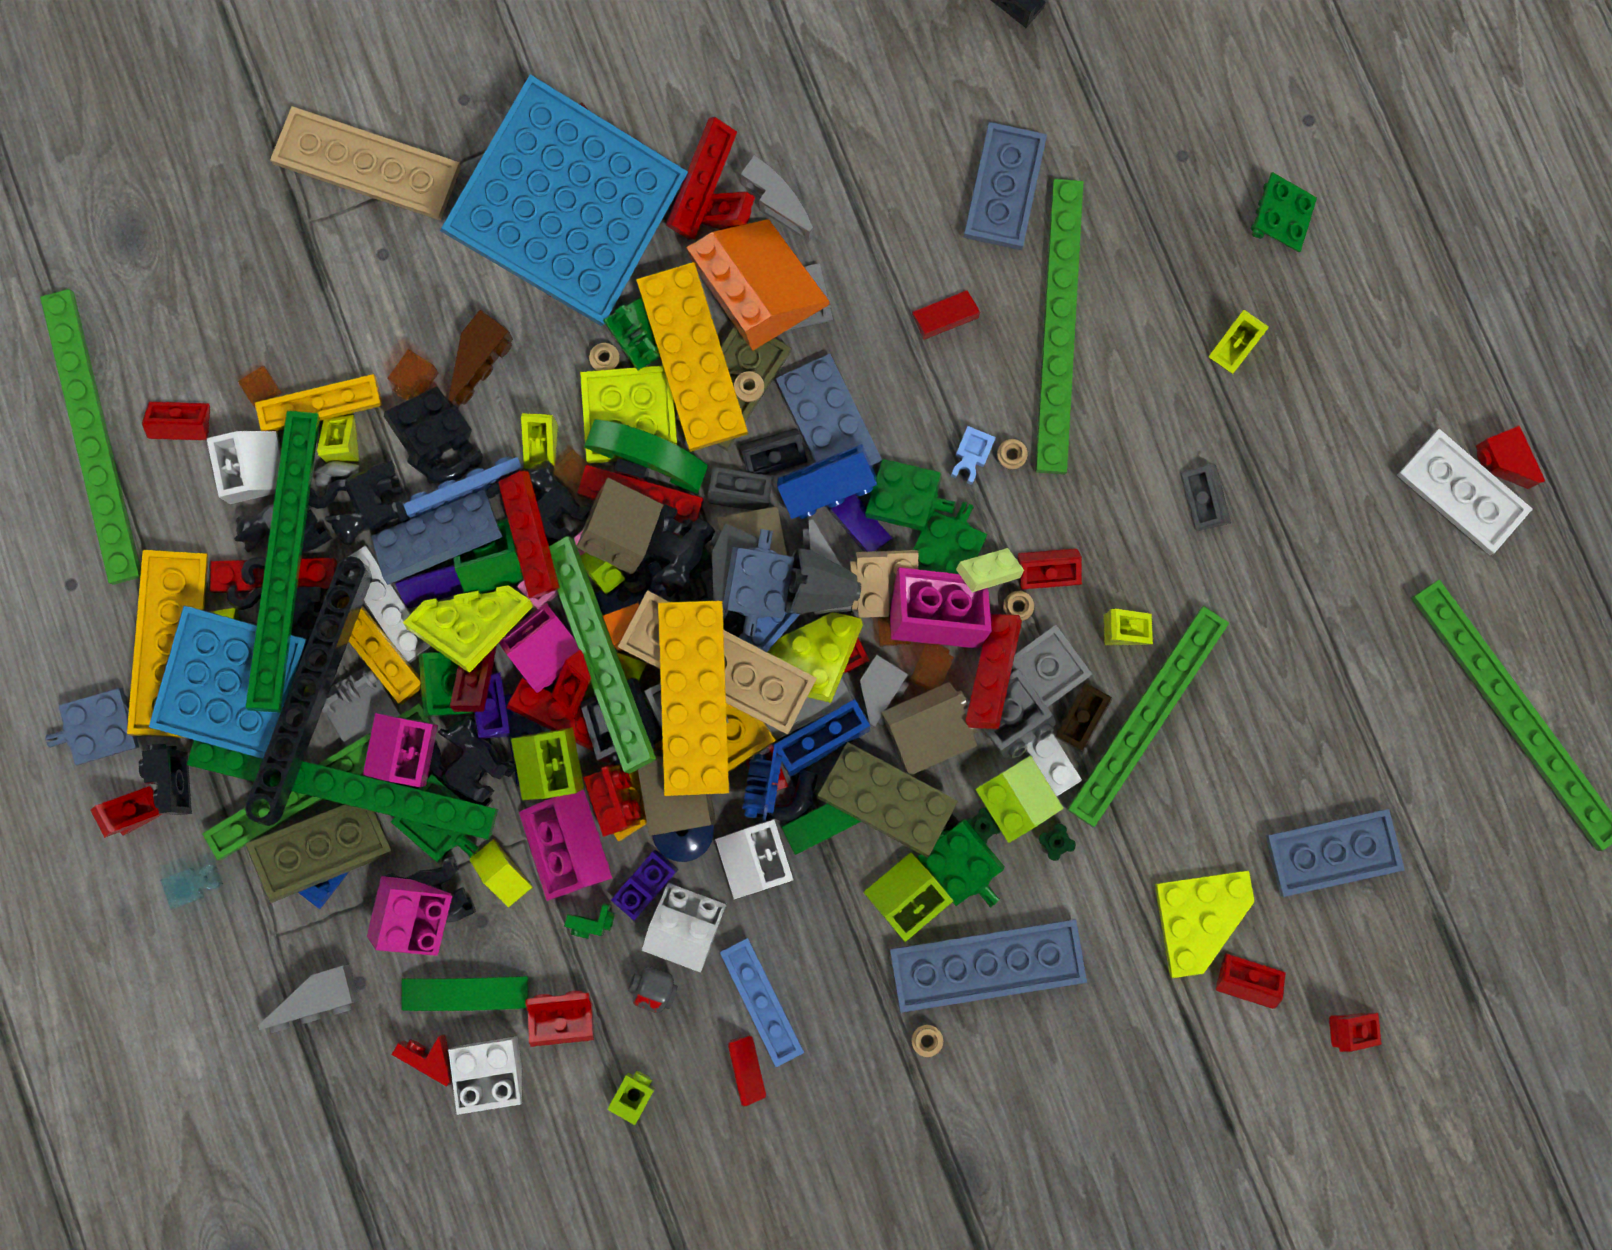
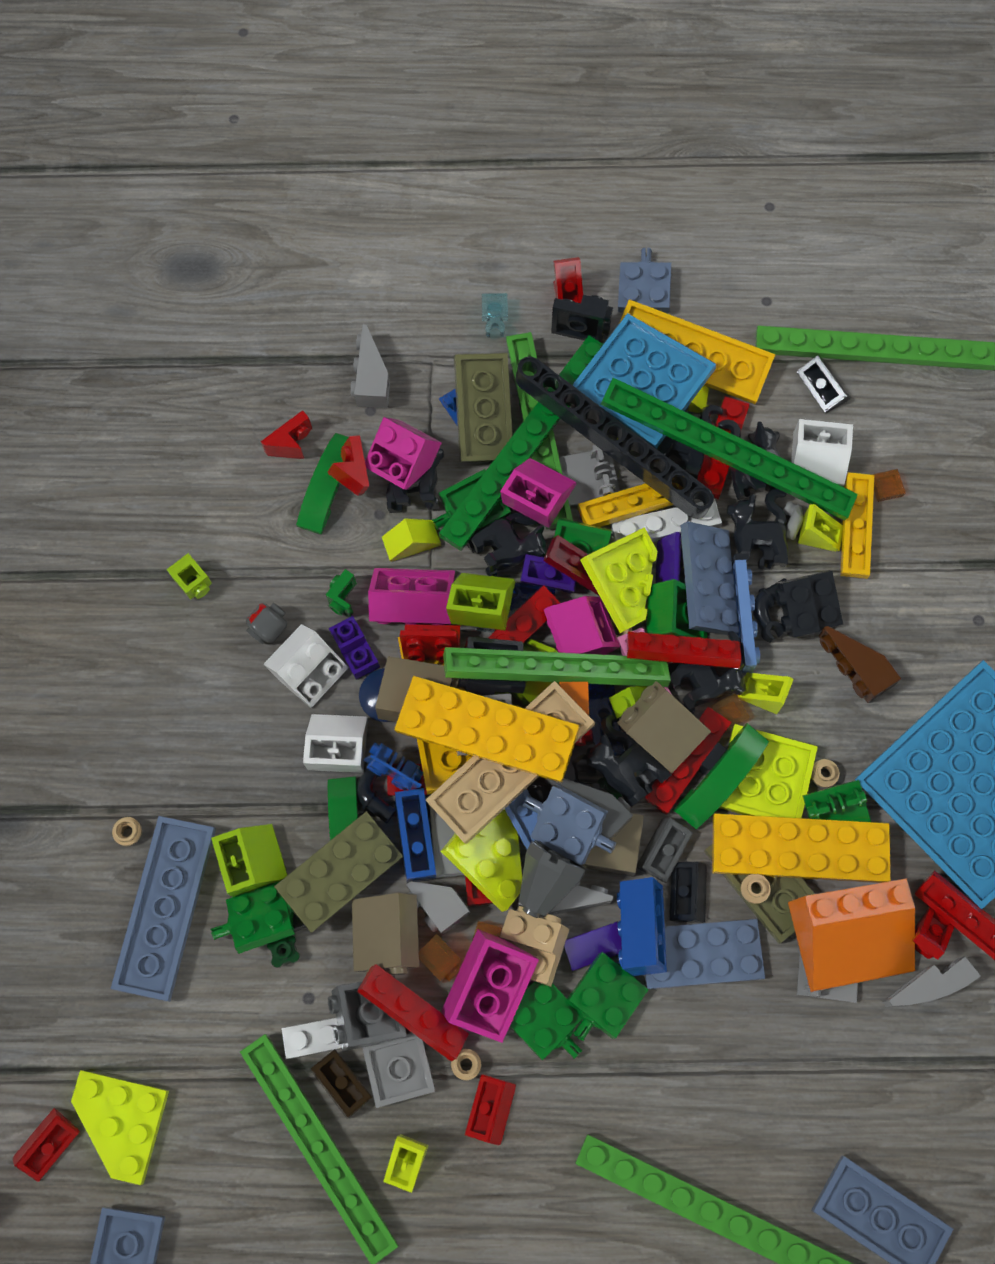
camera: 115 degrees right, 10 degrees down
(158, 490) = (823, 384): none -> slope
(177, 420) = (878, 414): red slope -> none
(412, 375) = (858, 606): clear orange brick -> none
(448, 962) = (352, 470): none -> red slope
(486, 1075) = (257, 475): white slope -> none
(560, 1018) = (275, 544): red bracket -> none
(572, 683) = (541, 638): red slope -> none
(746, 1070) = (171, 674): red slope -> none
(762, 1002) = (218, 706): medium blue plate -> none
(946, 314) = (768, 1107): red slope -> none
(973, 451) = (627, 1079): light blue plate -> none
(990, 570) = (507, 1048): yellowish green plate -> none
(1018, 447) = (620, 1121): tan plate -> none
(1019, 799) = (292, 991): lime slope -> none
(1055, 851) = (248, 1018): dark green plate -> none

